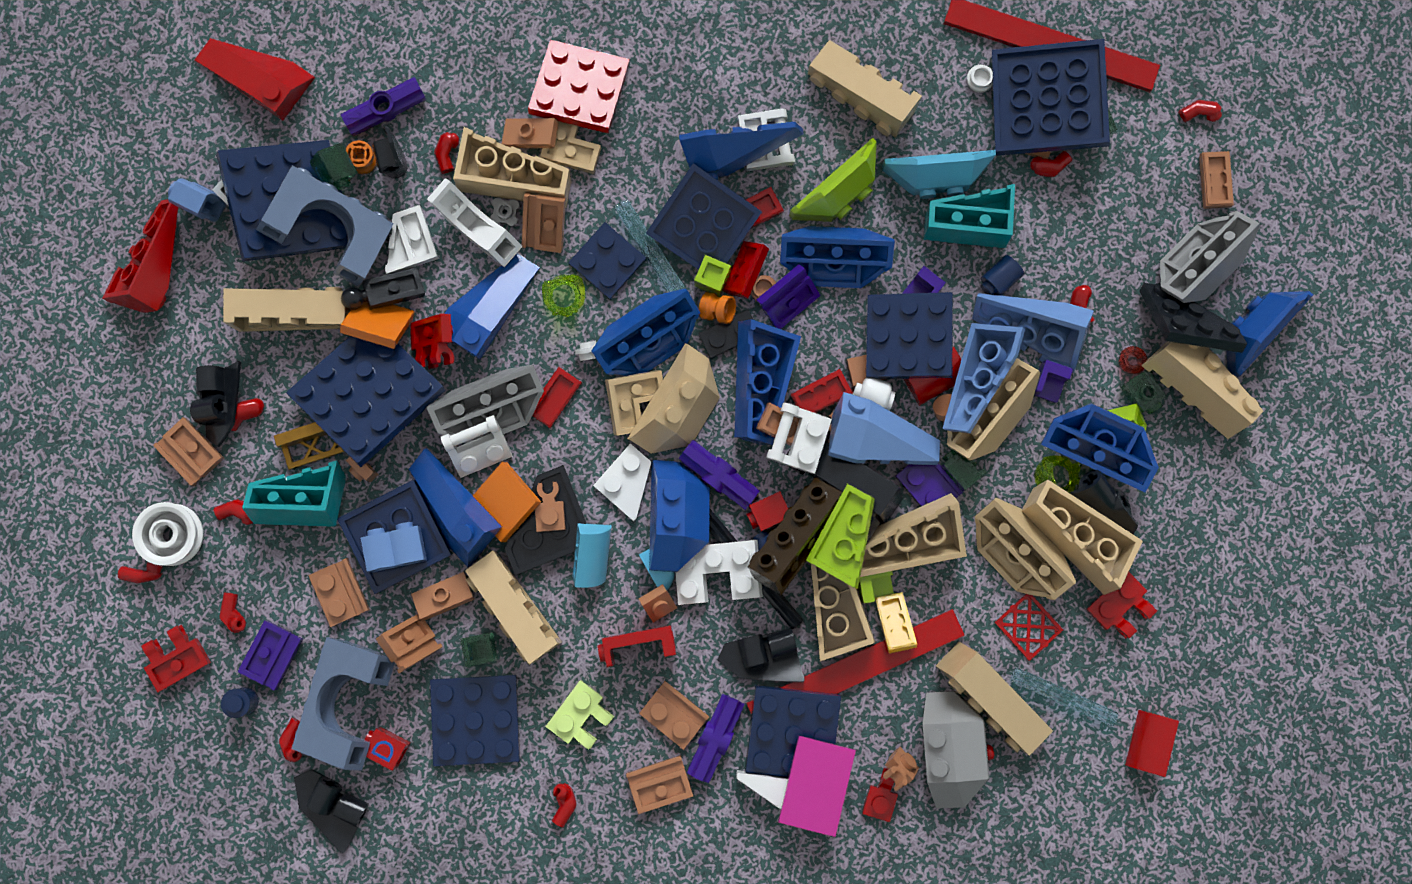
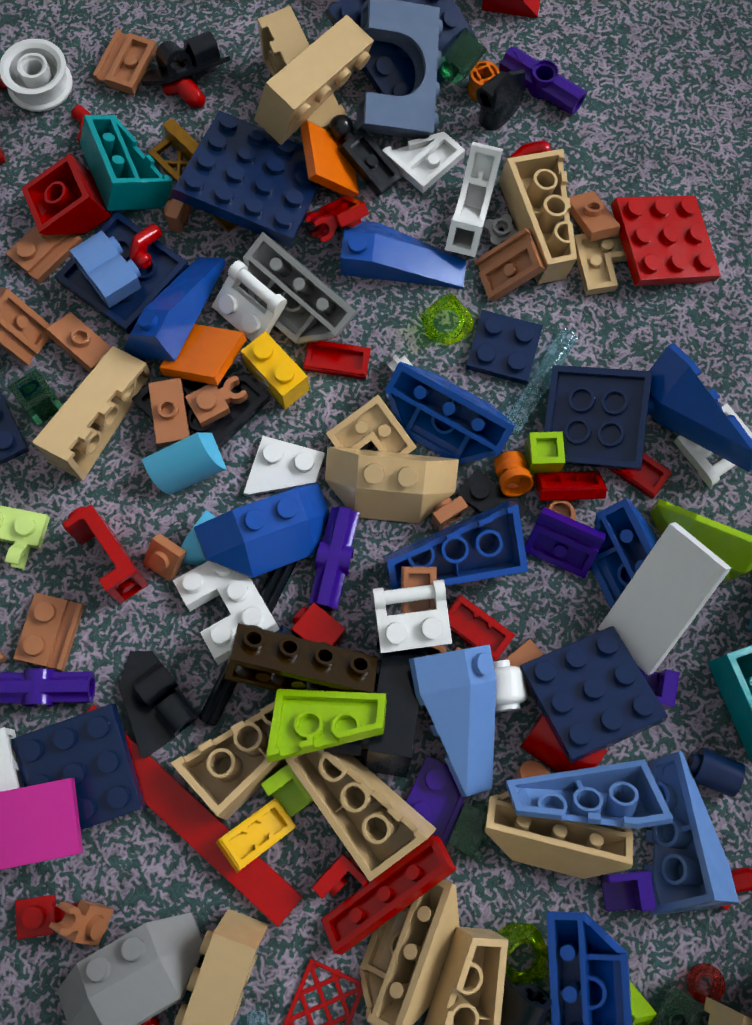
camera: 65 degrees right, 10 degrees down
(307, 300) = (311, 78): none -> tan wedge
(308, 557) = (65, 199): none -> red slope
(381, 510) = (140, 243): none -> red arm
(542, 549) = (168, 411): none -> nougat plate
(544, 451) = (275, 370): none -> yellow brick
(723, 371) = (448, 512): none -> nougat plate
(869, 249) = (665, 596): none -> white tile
(950, 581) = (333, 878): none -> red bracket
(980, 548) = (387, 894): none -> red plate

